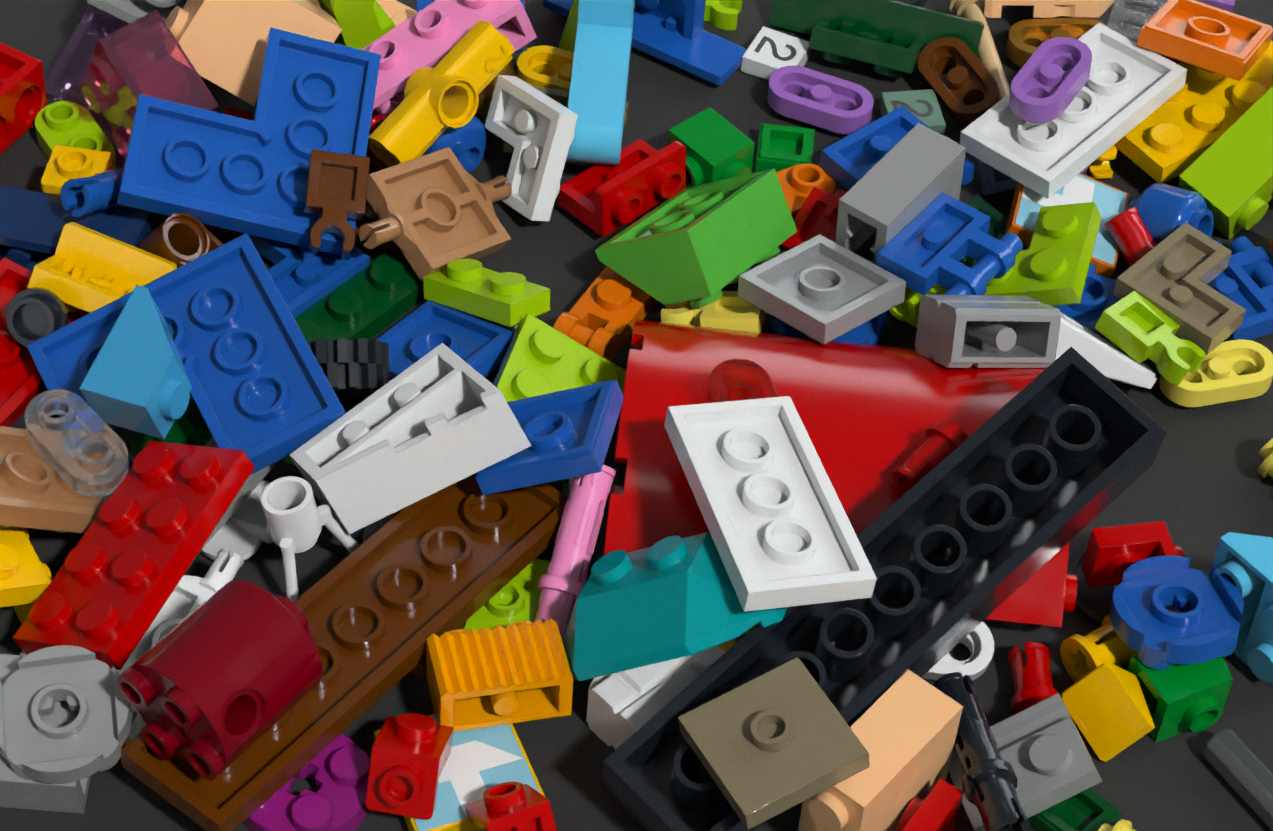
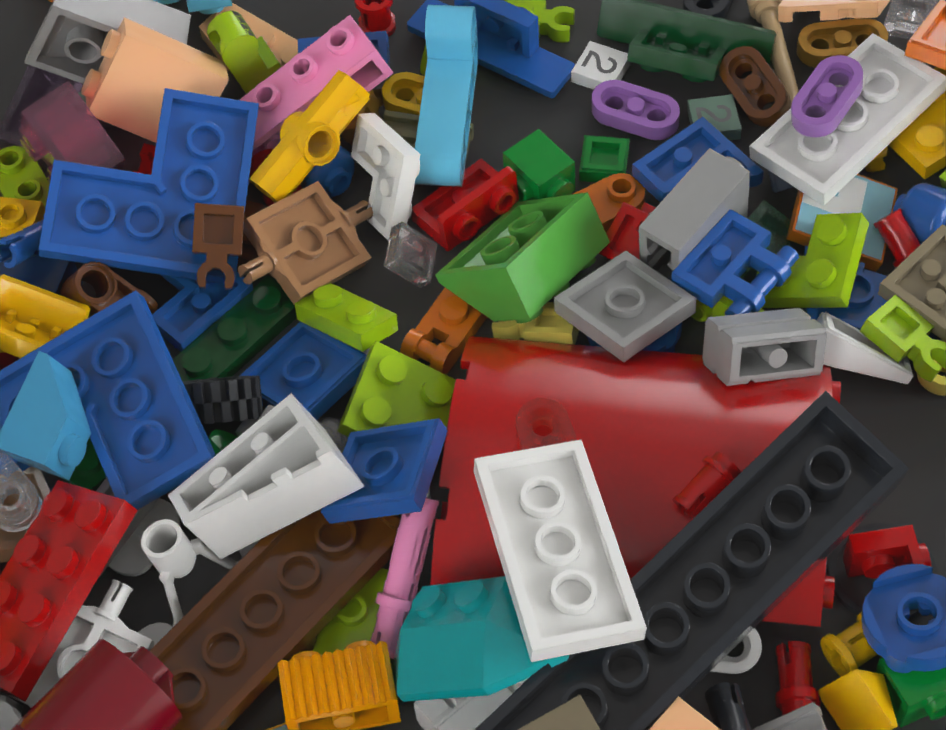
camera: 10 degrees right, 10 degrees up
(559, 236) = (410, 255): none -> clear tile

